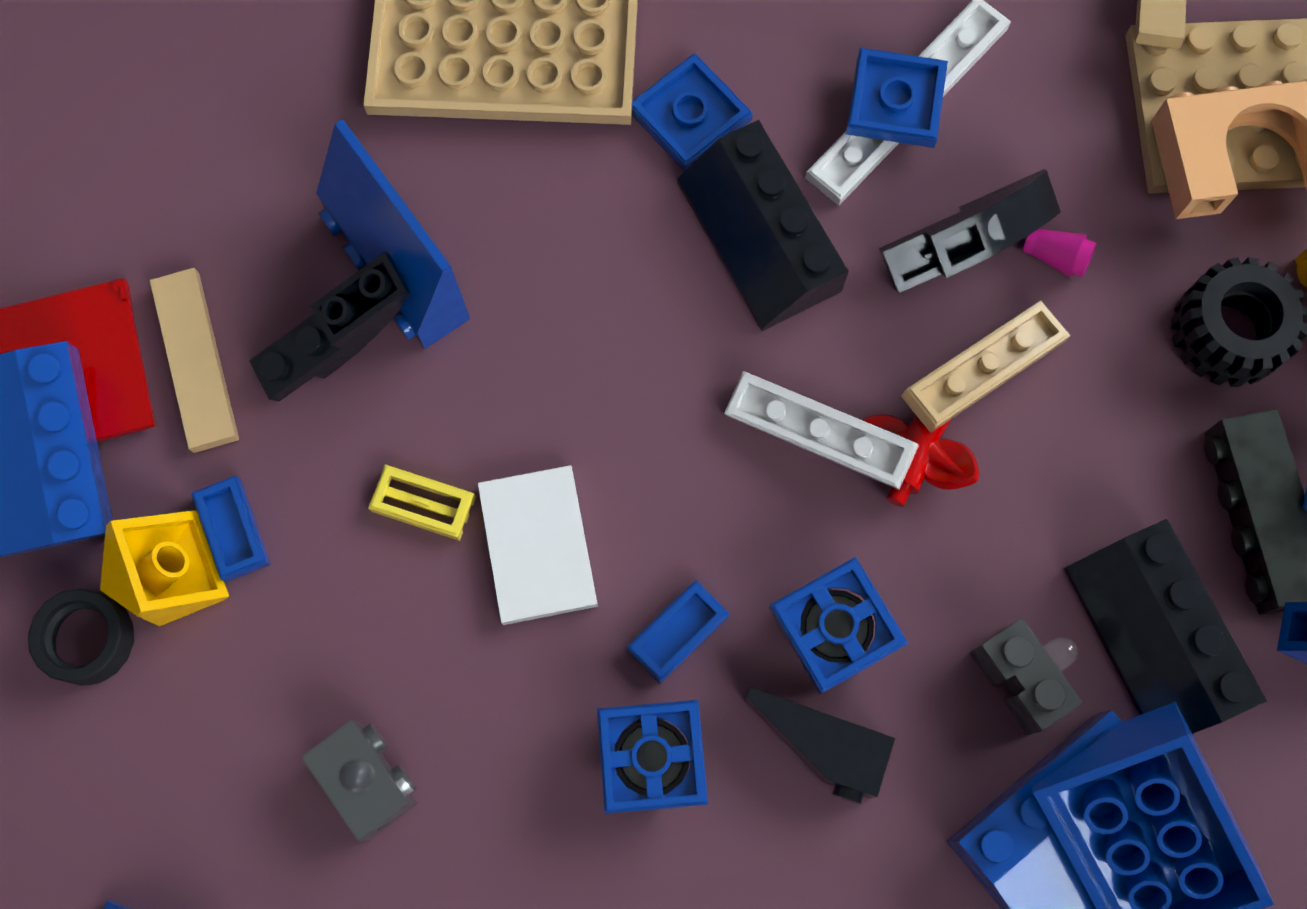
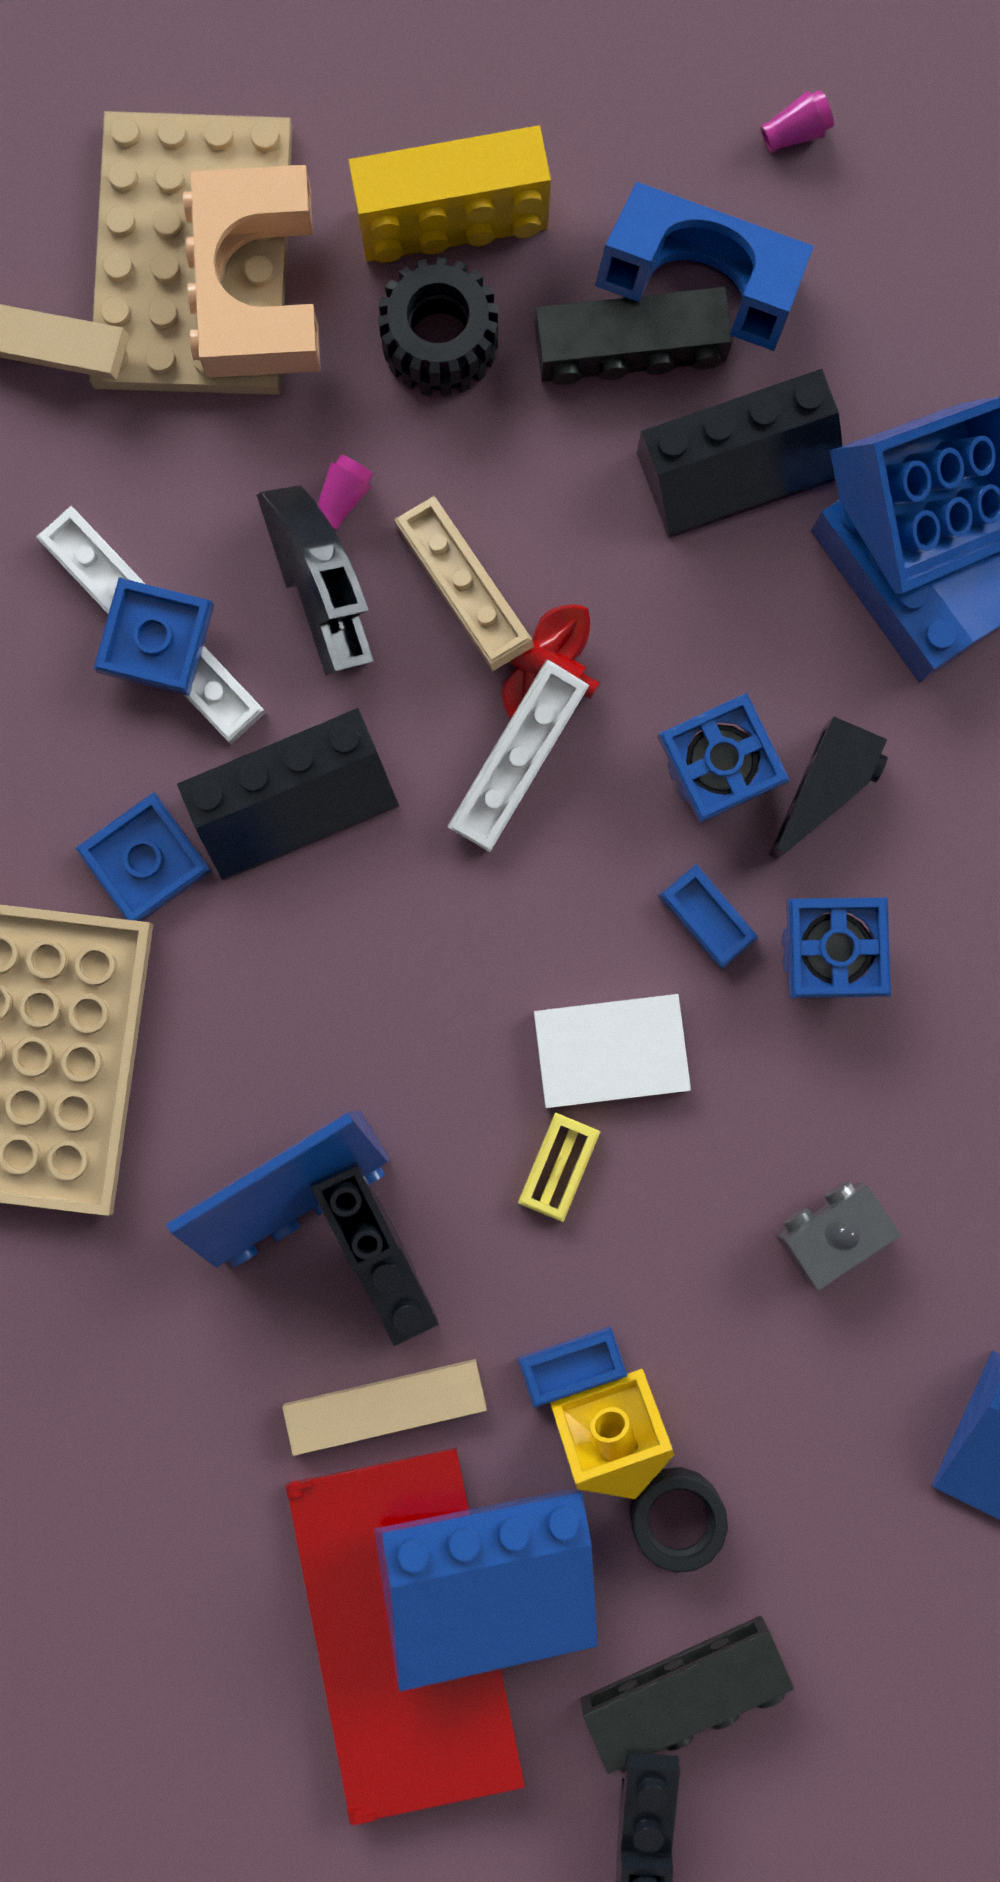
camera: 90 degrees left, 10 degrees up
(1030, 674) = (776, 581): dark grey piece -> none

